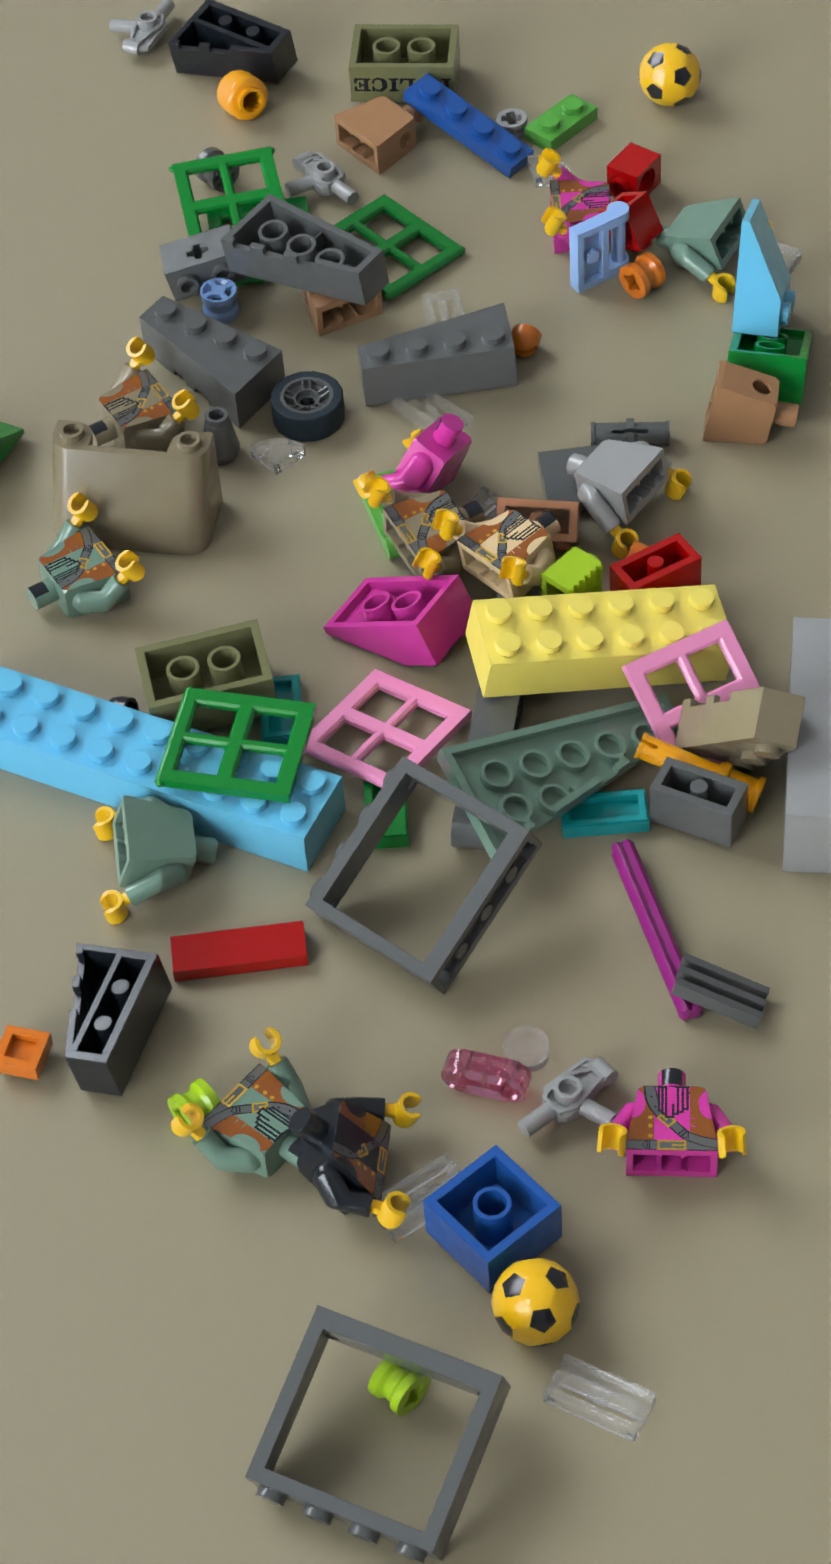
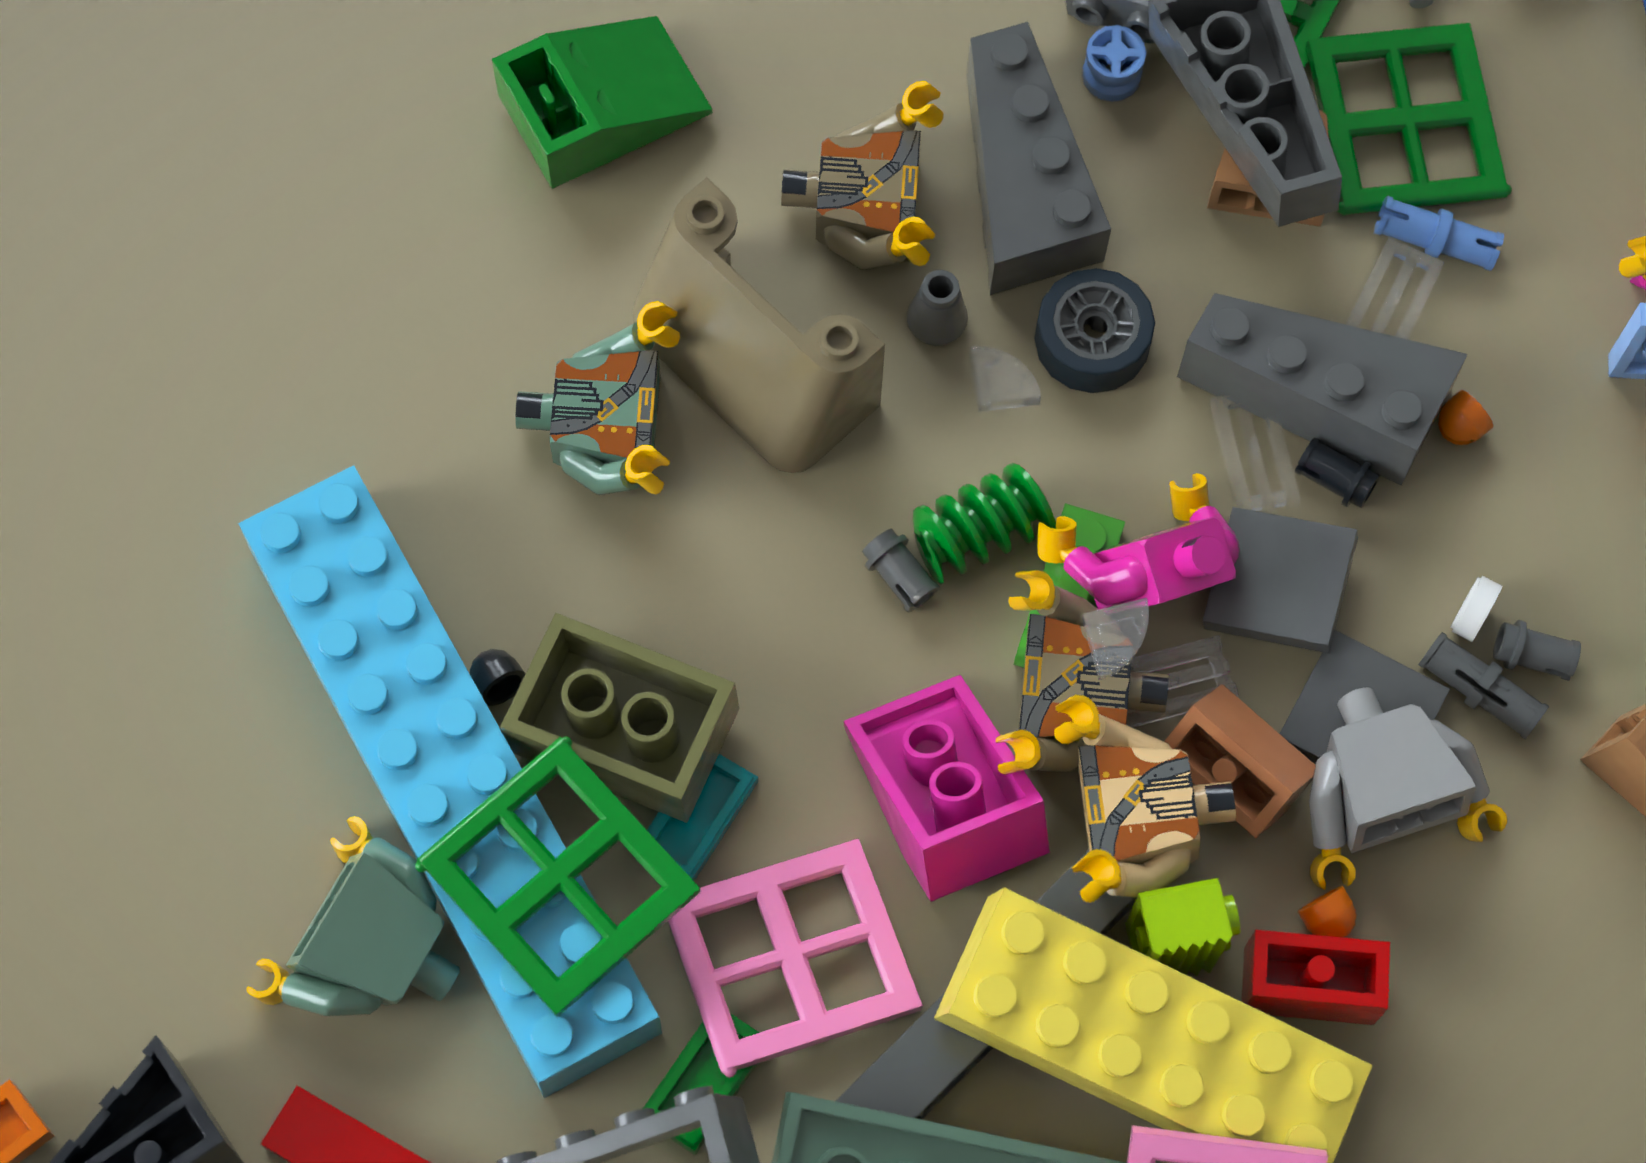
camera: 30 degrees right, 20 degrees up
(296, 551) = (900, 569): none -> dark grey pin
(320, 506) = (979, 519): none -> green piece
(433, 487) = (1116, 635): none -> clear tile
(445, 278) = (1439, 233): none -> medium blue pin
(482, 394) = (1337, 473): none -> black pin
(498, 448) = (1285, 581): none -> dark grey tile
(598, 404) = (1475, 608): none -> white tile
(642, 405) = (1536, 650): none -> dark grey pin

